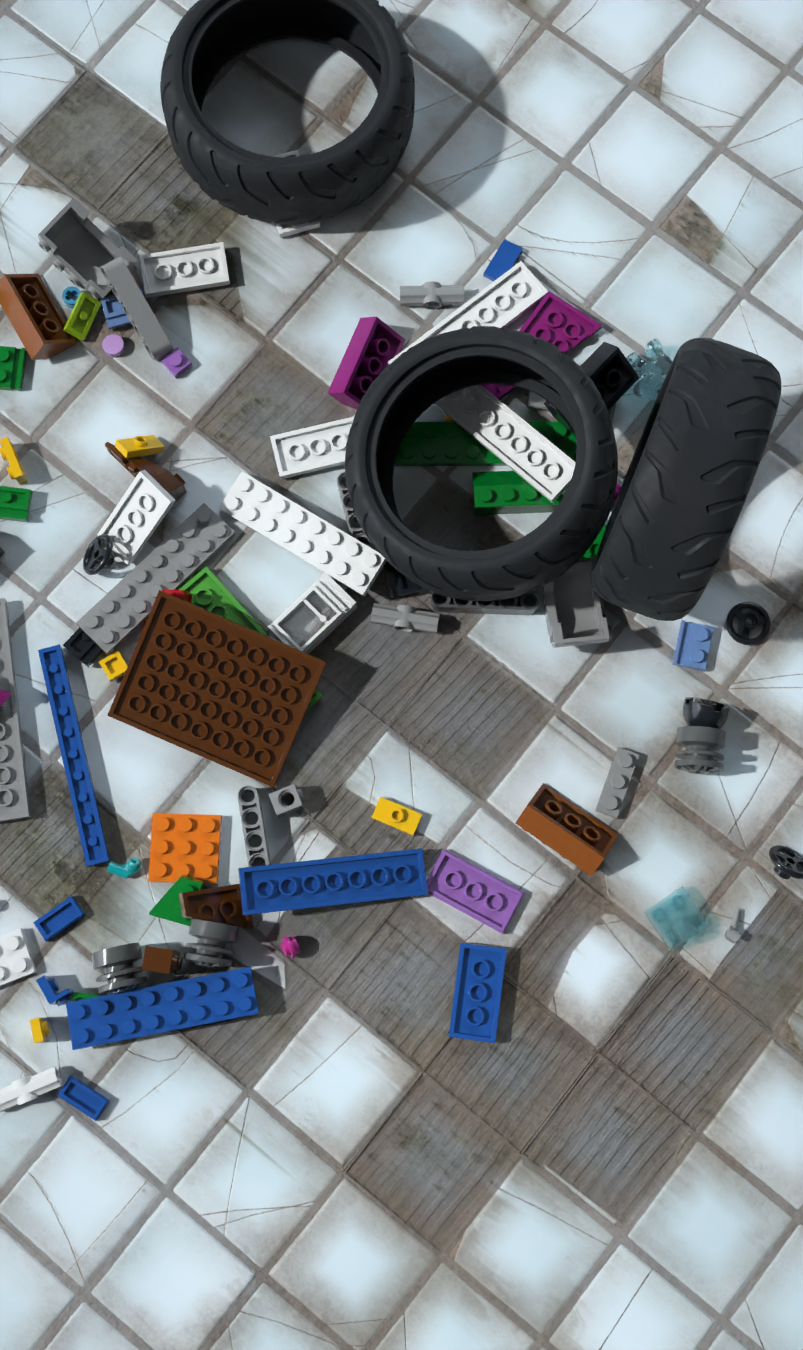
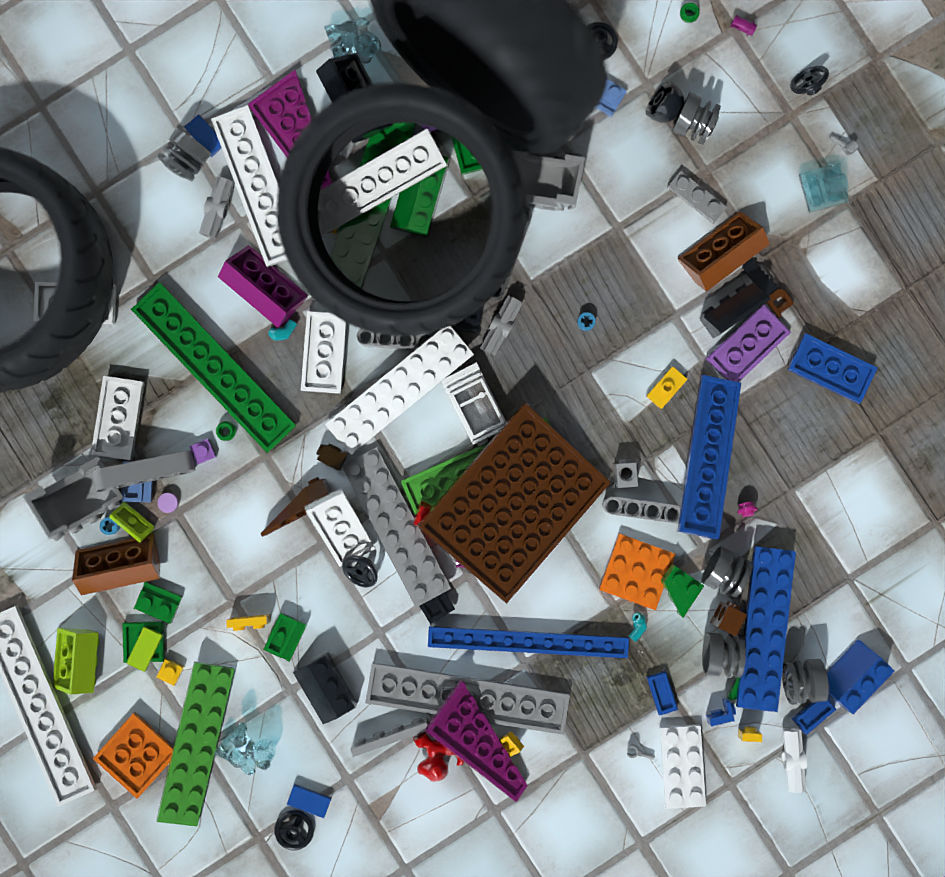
camera: 75 degrees left, 10 degrees up
(114, 666) = (462, 585): yellow plate -> none
(115, 1069) = (805, 681): none -> dark grey wheel
(138, 1130) = (857, 676): none -> blue slope
(139, 446) = (273, 506): yellow plate -> none
(201, 372) = (219, 431): none -> green plate
(210, 489) = (331, 456): none -> dark brown window
(216, 905) = (696, 559): reddish brown wing -> none
(265, 346) = (213, 367): none -> green plate
(324, 401) = (282, 333): none -> teal arm
(434, 703) = (590, 317): none -> dark azure bush
(472, 245) = (183, 155): none -> dark grey wheel
(505, 858) = (733, 309): none -> black slope
(544, 891) = (767, 286): none -> piece

